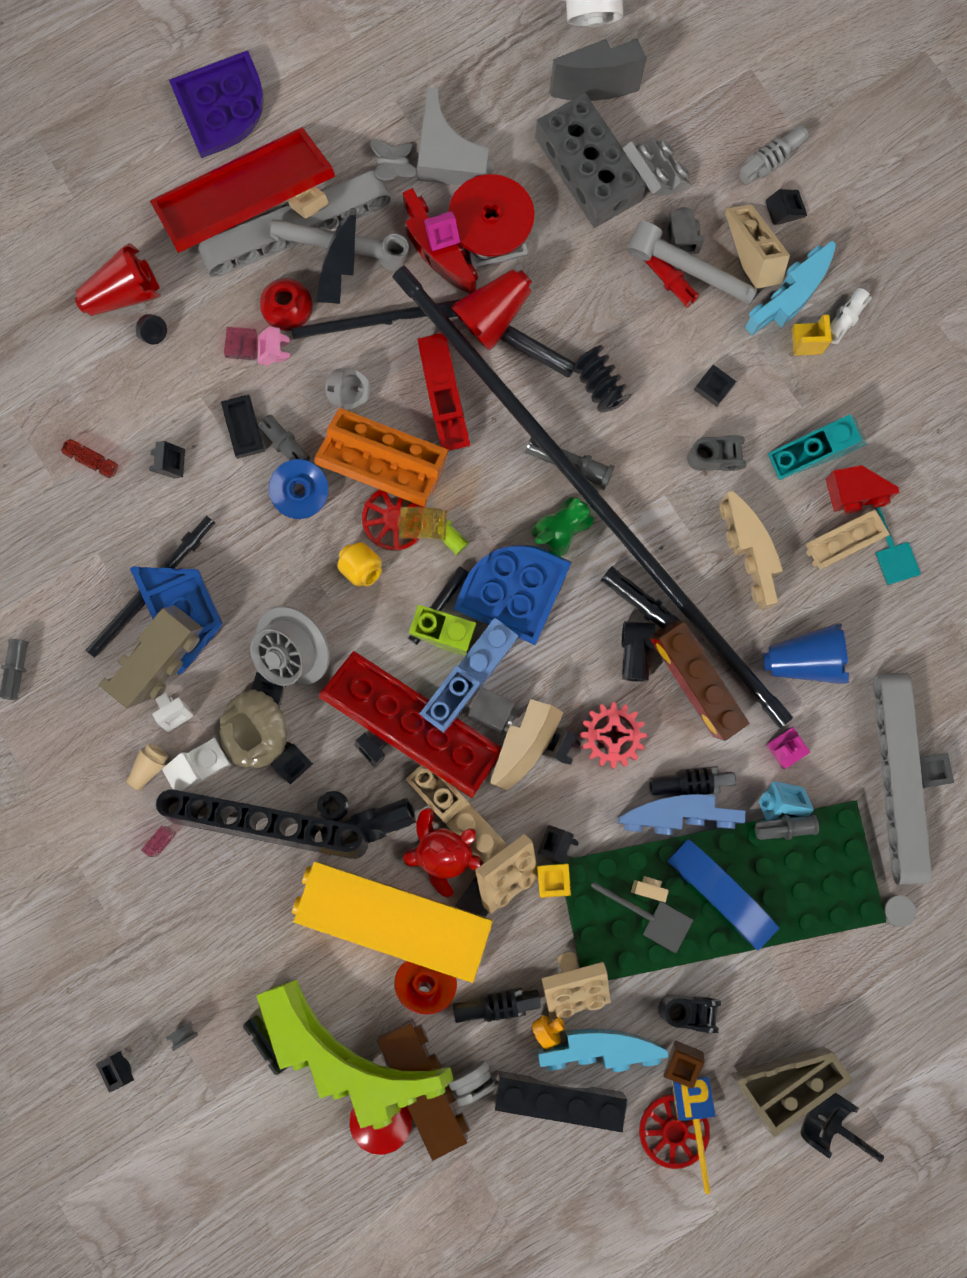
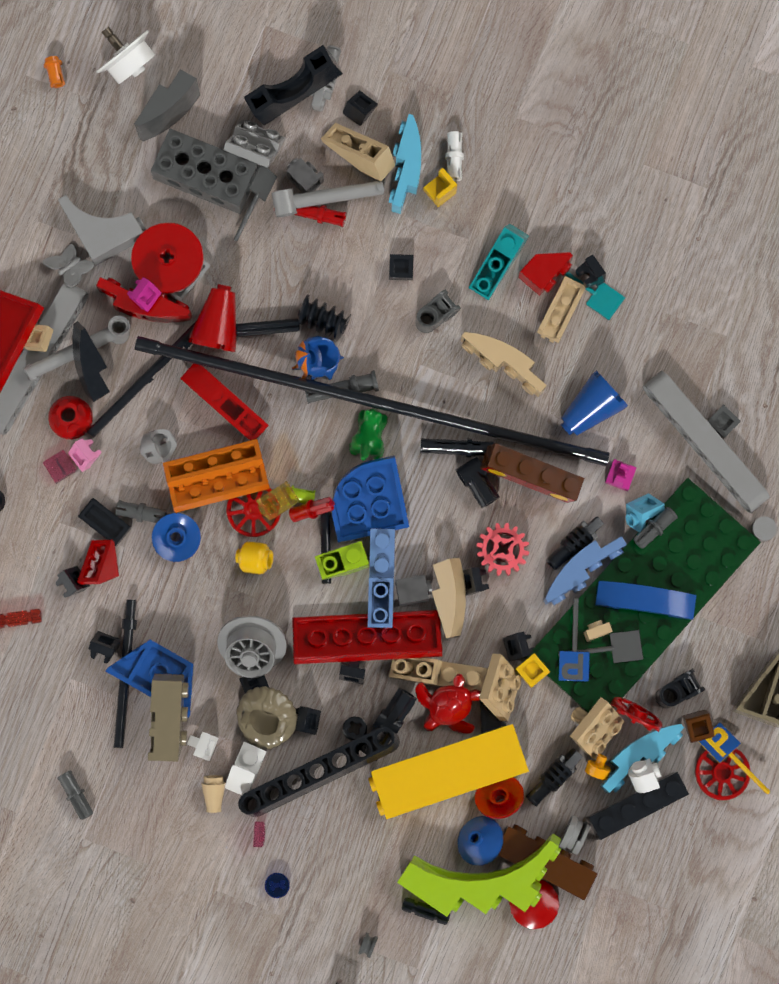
camera: 35 degrees left, 0 degrees up
(140, 905) = (277, 885): none -> clear blue tile
(151, 544) = (104, 645): none -> black tile
(206, 462) = (99, 563): none -> red slope
(378, 1025) = (488, 844): none -> blue dish
(450, 556) = (311, 509): none -> red axle
(566, 411) = (317, 357): none -> blue hair
(589, 1078) = (644, 776): none -> white plate
(599, 905) = (574, 663): none -> piece
(629, 1006) = (637, 713): none -> red wheel
(634, 209) = (261, 185): none -> dark grey piece
(705, 138) = (273, 100): none -> black arch
(909, 524) = (593, 270): none -> black tile

